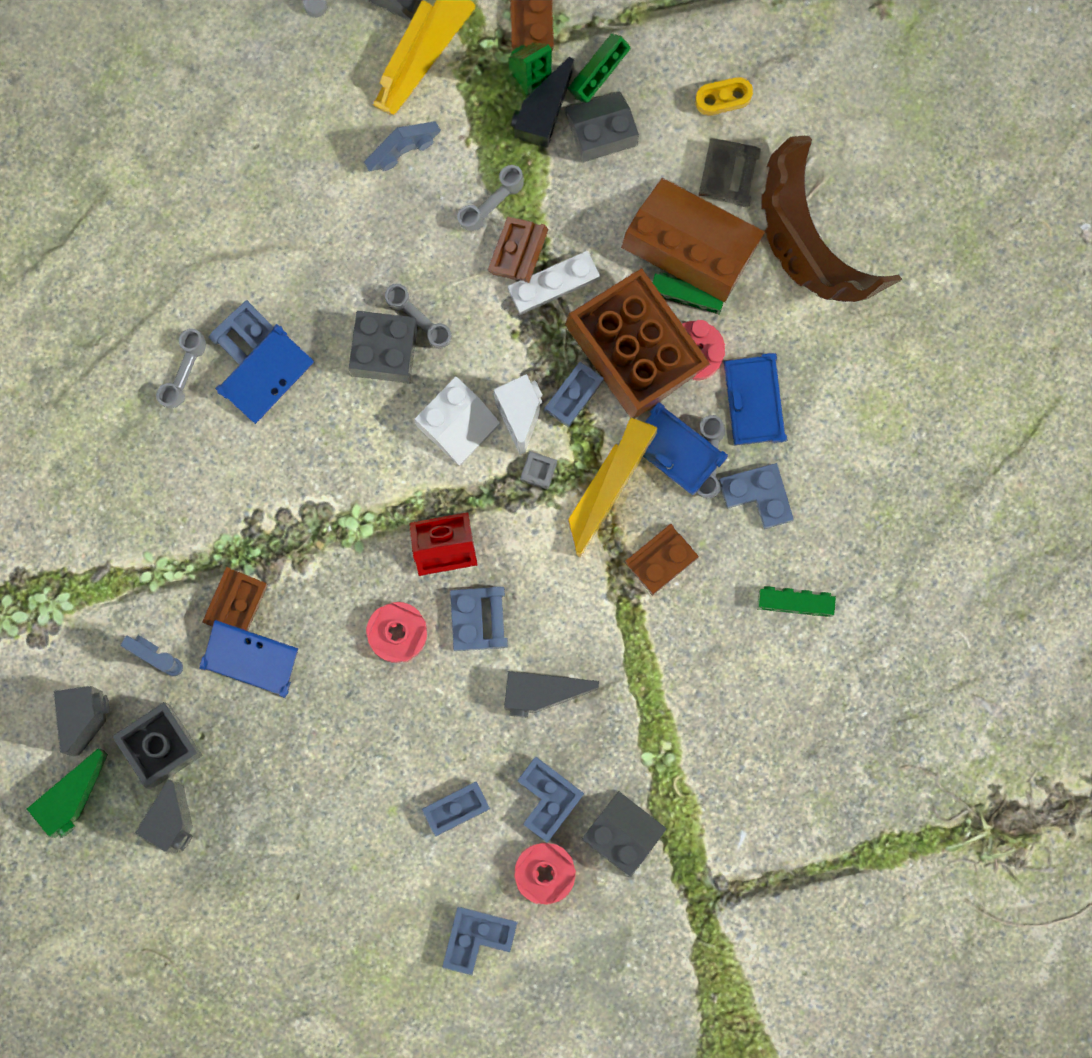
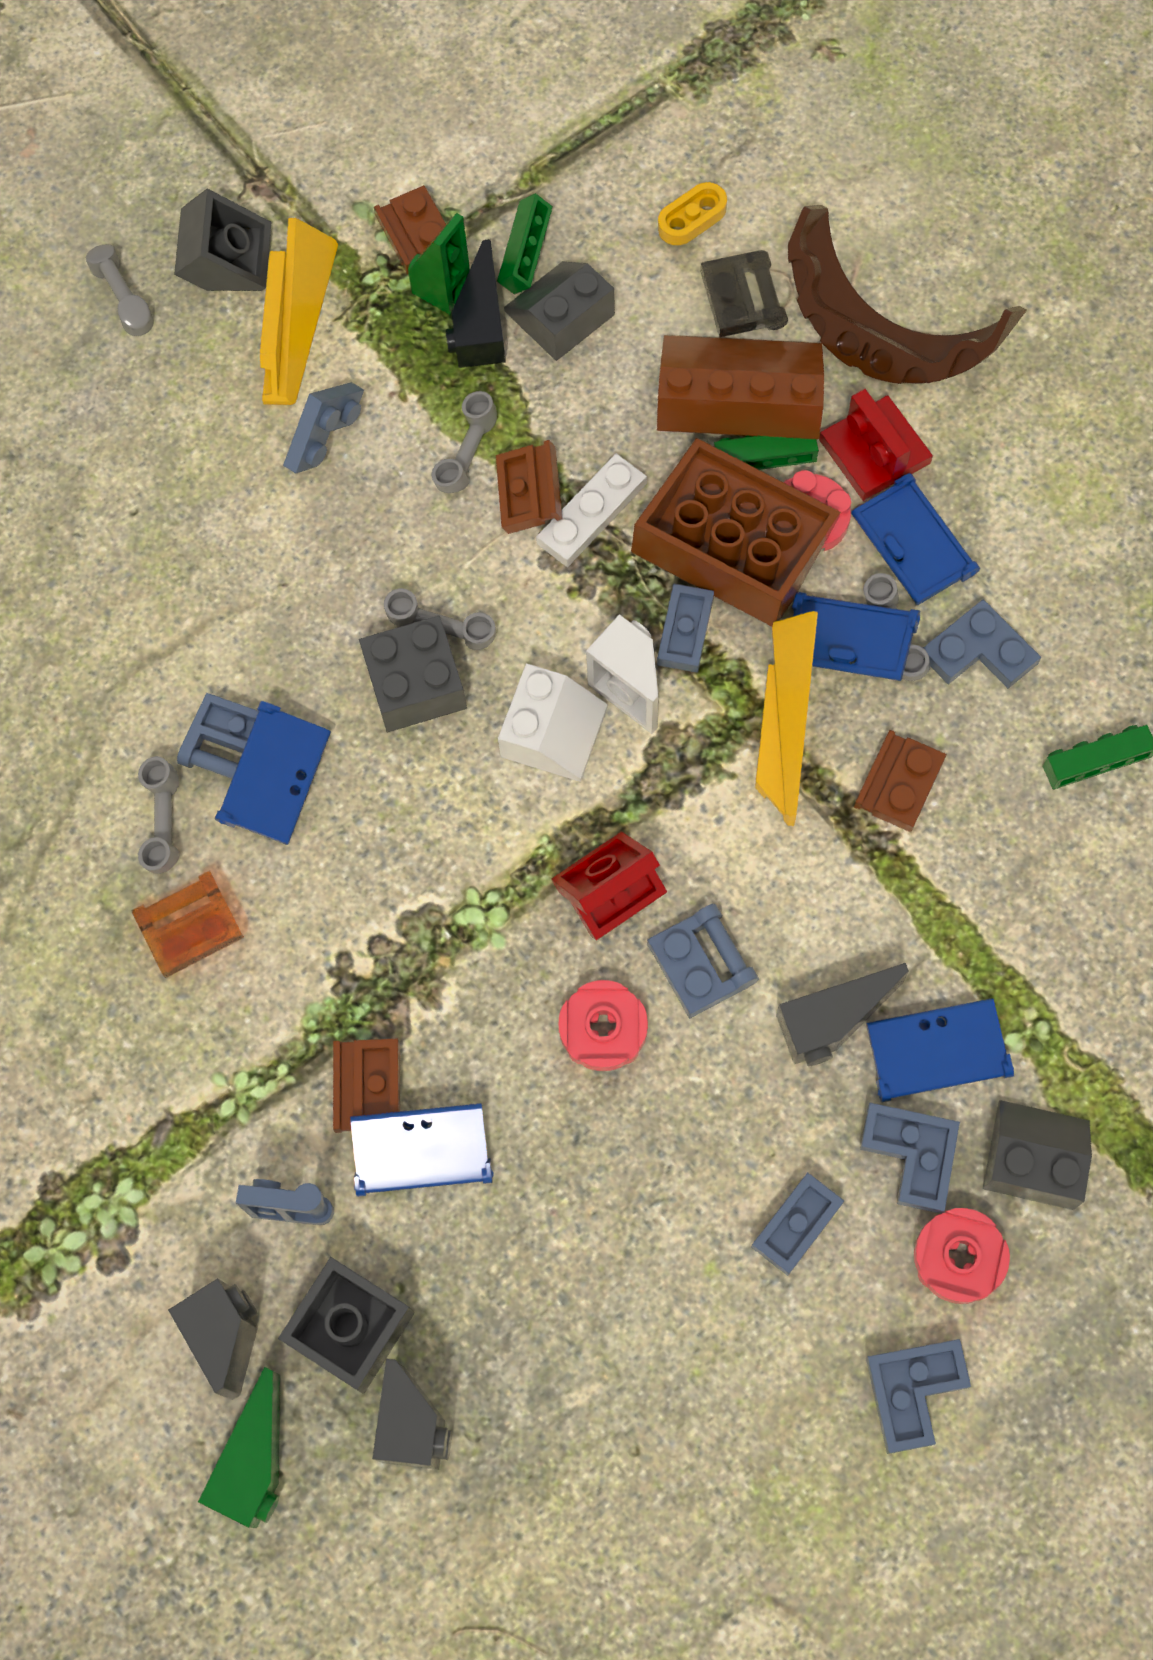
camera: 20 degrees left, 10 degrees down
(171, 457) = (193, 934): none -> clear orange plate
(538, 470) = (686, 740): light grey tile -> none
(589, 742) = (925, 1055): none -> blue door
(762, 322) = (874, 445): none -> red bracket

